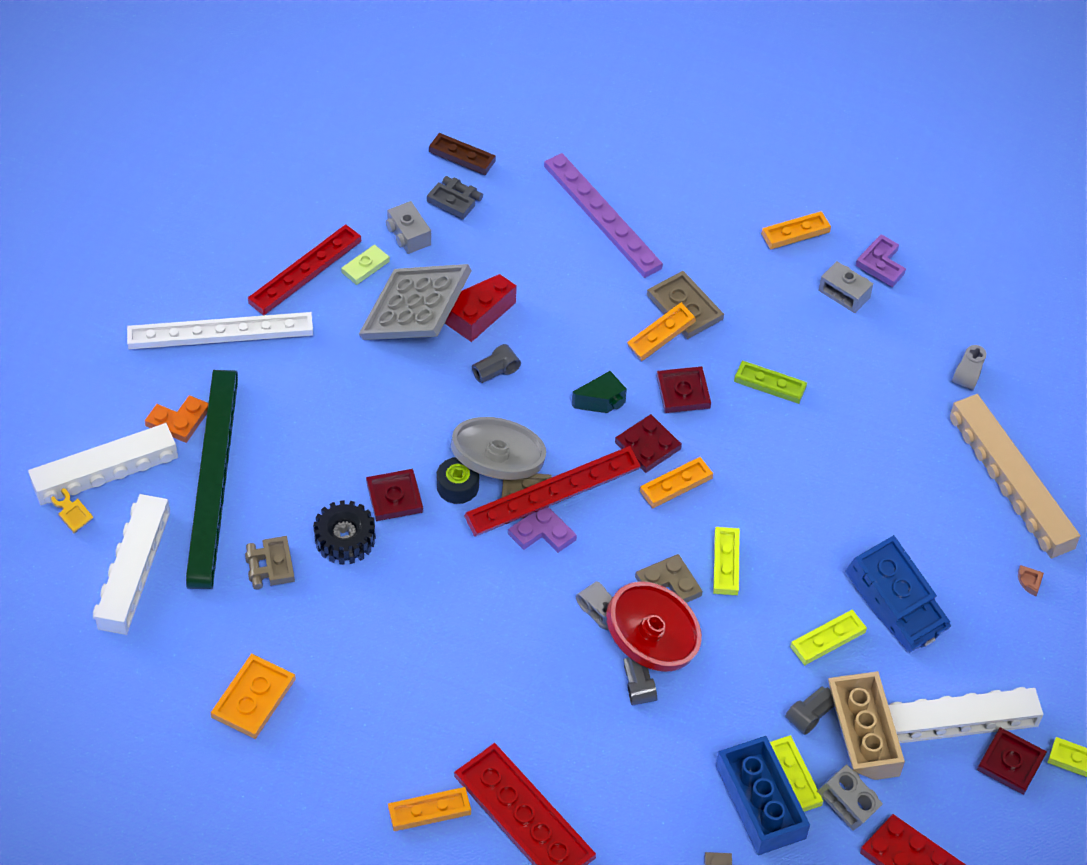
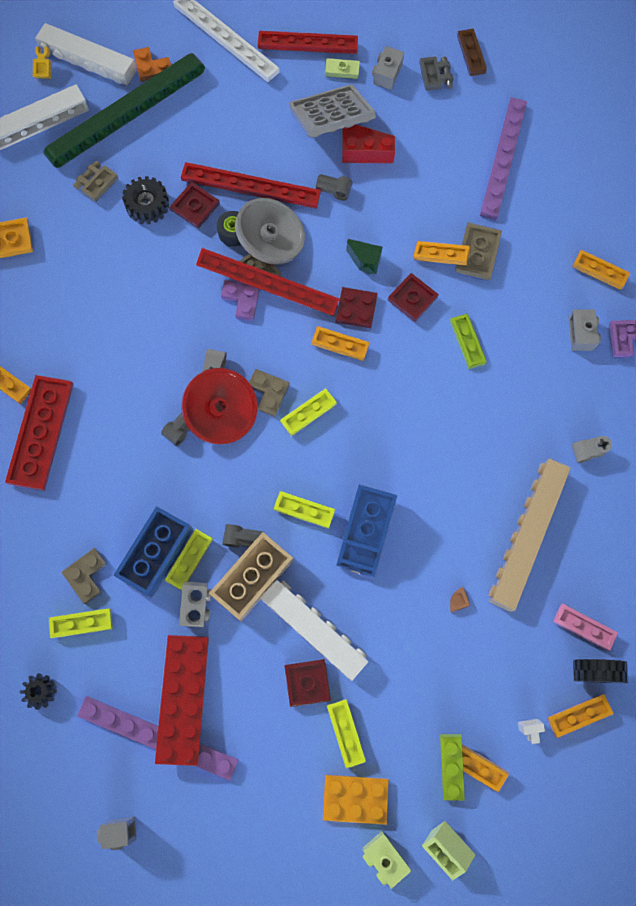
camera: 50 degrees right, 20 degrees up
(420, 432) = (251, 185): none -> red plate

